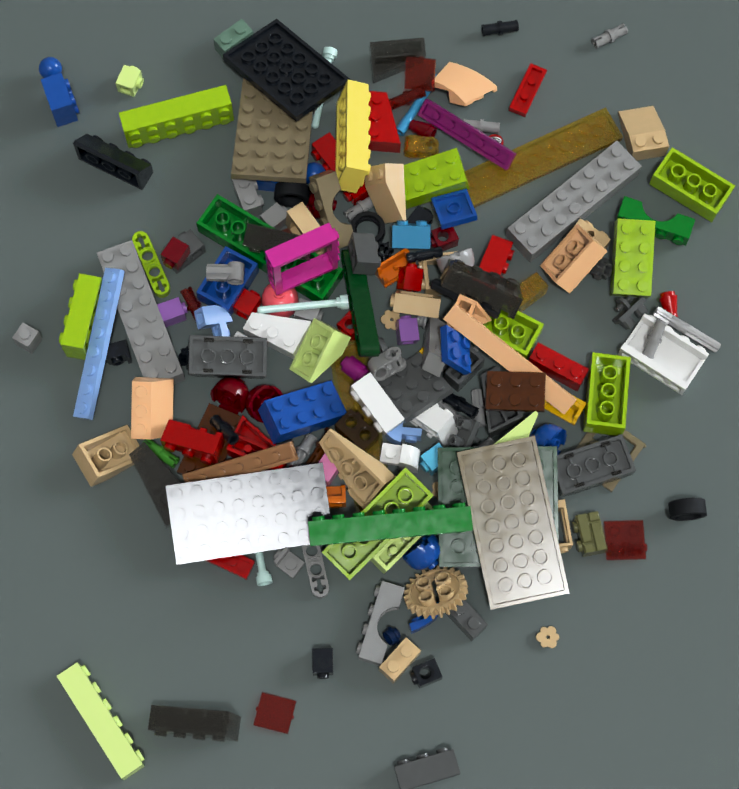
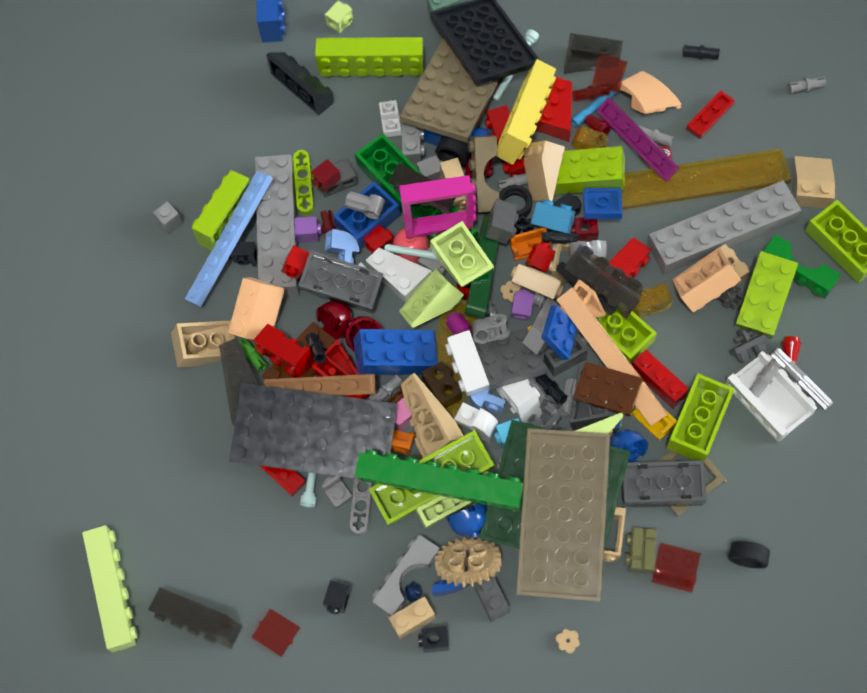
camera: 25 degrees right, 5 degrees down
(176, 350) = (295, 262): none -> red brick
(216, 175) = (390, 118): none -> white slope
(337, 299) = (460, 254): none -> yellowish green slope

